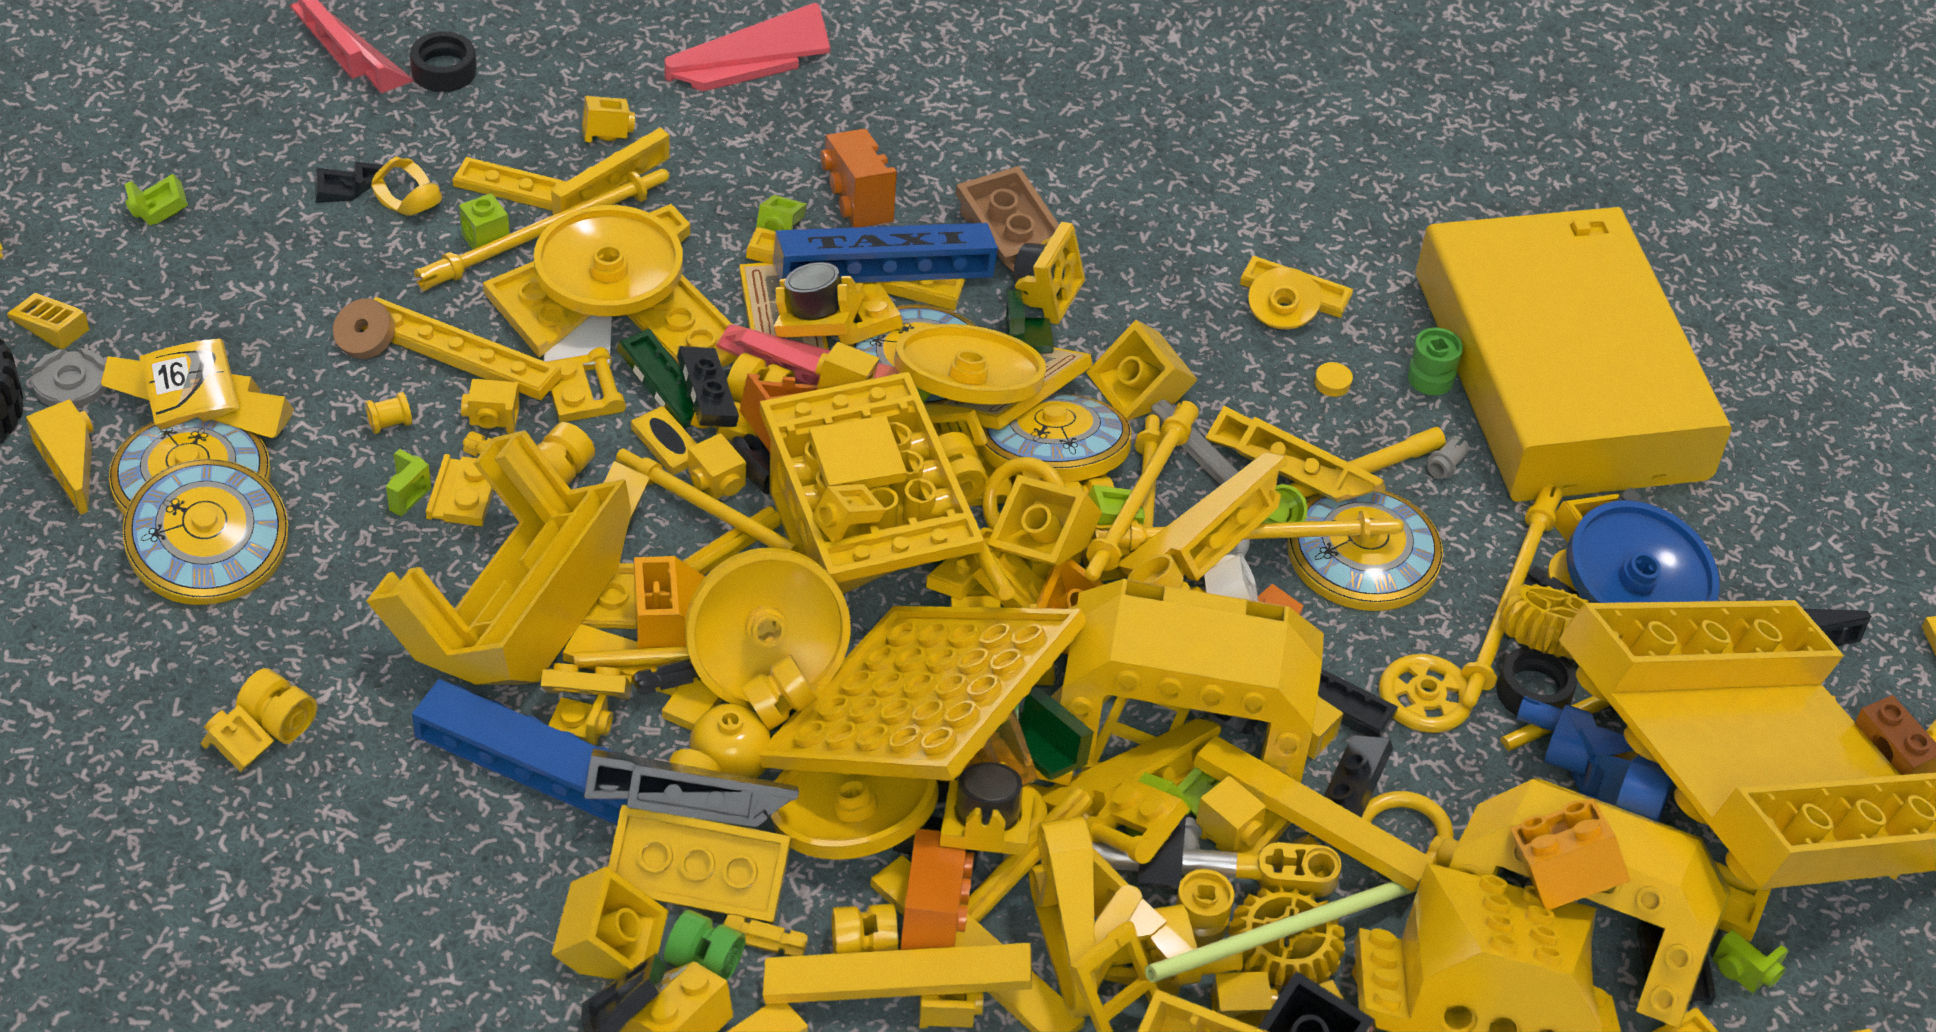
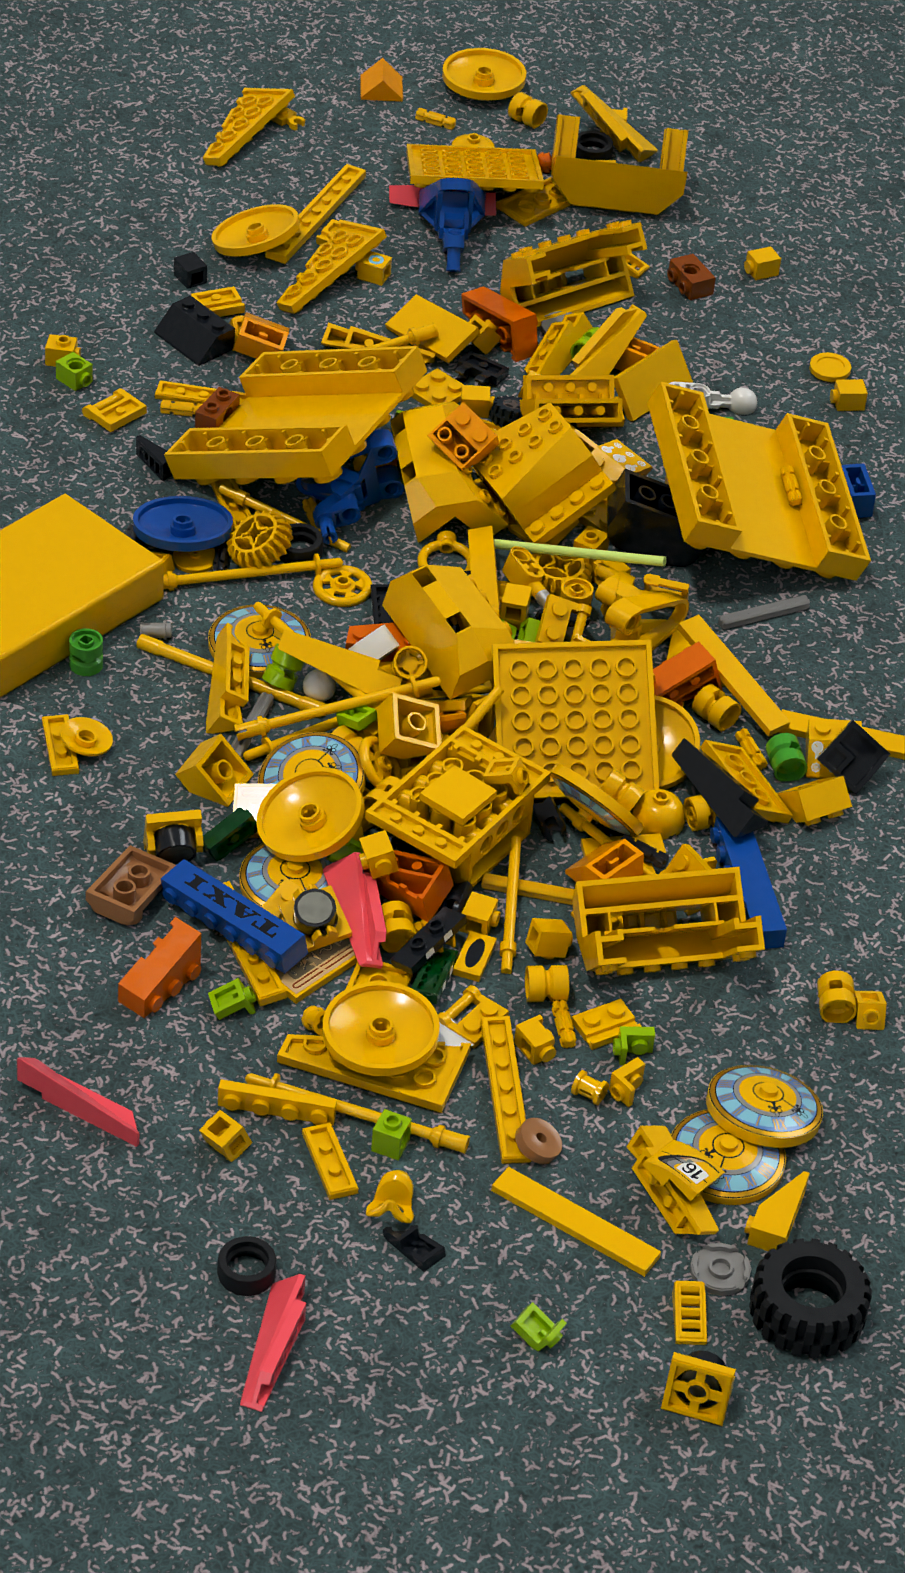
camera: 125 degrees left, 5 degrees down
(245, 308) = (576, 1221): none -> yellow tile
(363, 439) = (626, 1080): none -> yellow bracket
(693, 256) = (313, 1019): none -> yellow bush
(1333, 379) = (131, 699): yellow tile -> none

